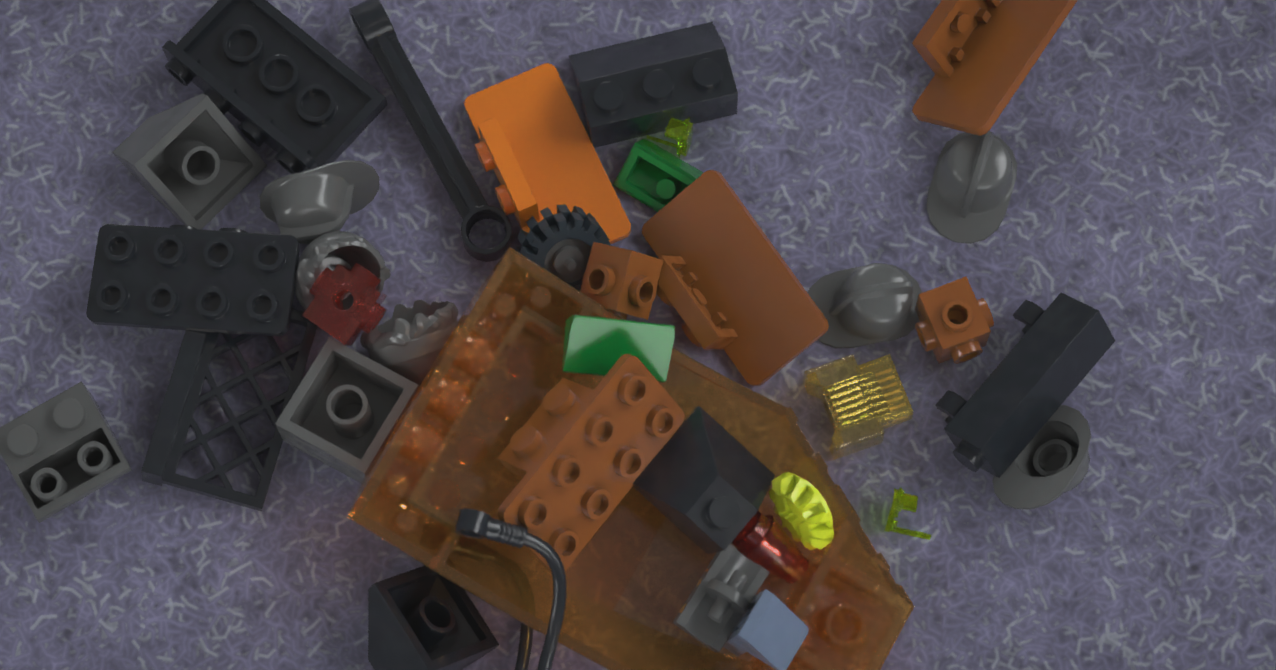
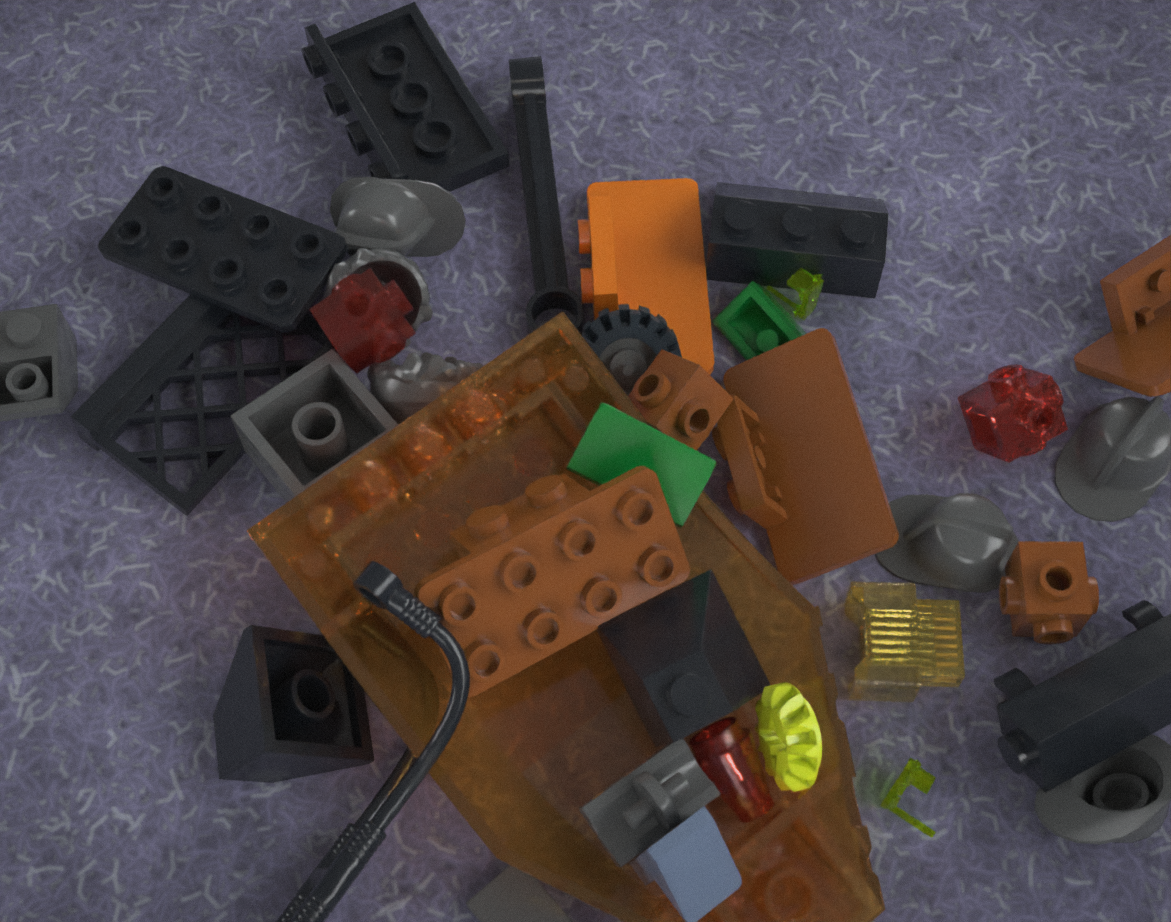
camera: 20 degrees right, 10 degrees down
(190, 160) = (286, 144): dark grey slope -> none
(881, 182) = (1013, 412): none -> clear red brick

